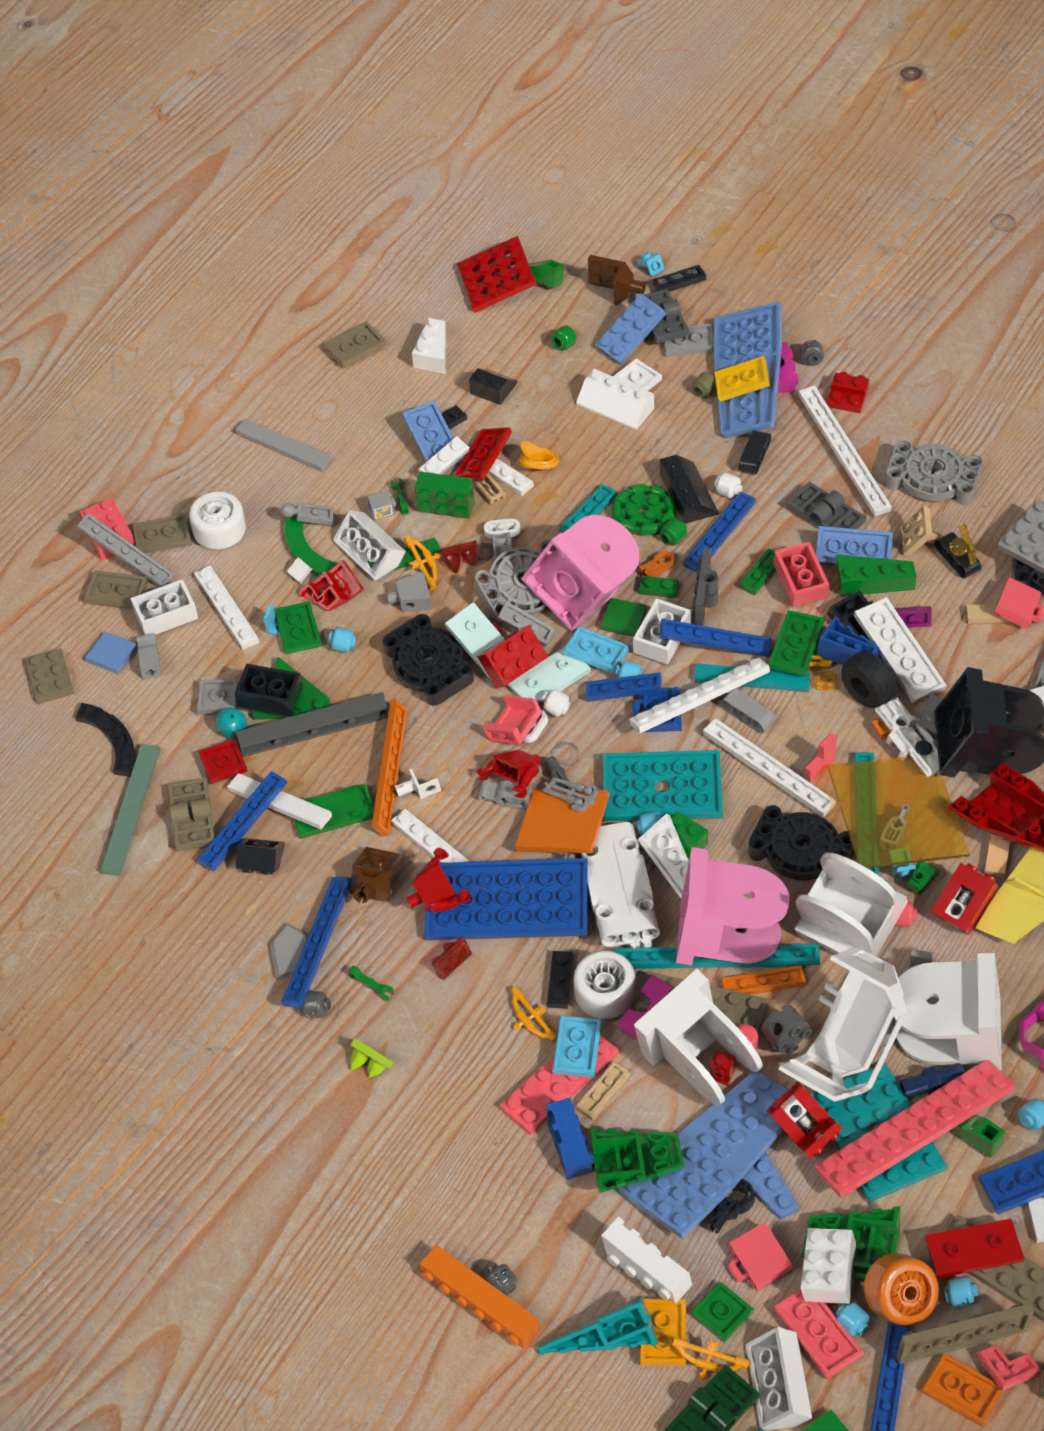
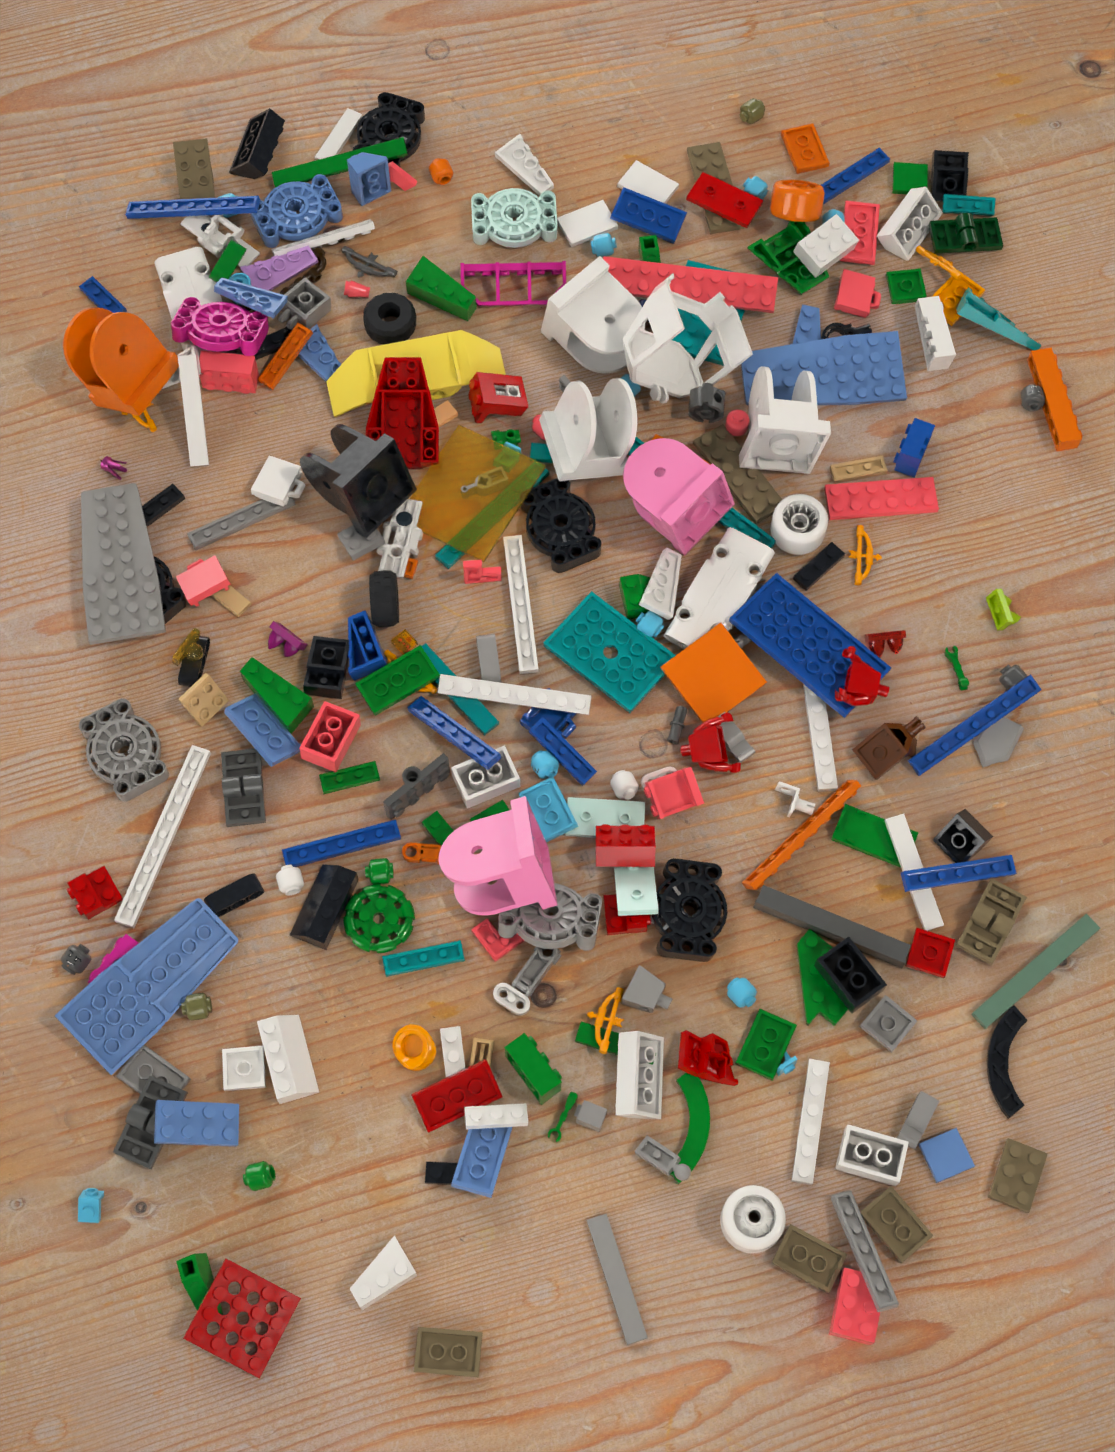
camera: 145 degrees left, 15 degrees up
(229, 721) = (899, 988): teal helmet -> none
(299, 570) = (718, 1104): white tile -> none
(452, 555) = (574, 1005): clear red tile -> none
(491, 385) = (369, 1178): black slope -> none
(518, 618) = (584, 873): light grey plate -> none
(571, 795) = (681, 669): light grey piece -> none
(577, 1046) = (854, 501): medium azure tile -> none
(614, 275) = (144, 1188): reddish brown plate -> none
(633, 1157) = (886, 397): green wedge -> none
(654, 991) = (772, 487): dark pink arch -> none
(680, 279) = (88, 1157): black plate -> none
(742, 378) = (171, 966): yellow plate -> none
(817, 1133) = (758, 323): red brick -> none
(900, 650) = (331, 611): white plate -> none
(965, 1333) = (782, 158): dark tan plate -> none
(1007, 1372) = (772, 135): coral tile -> none

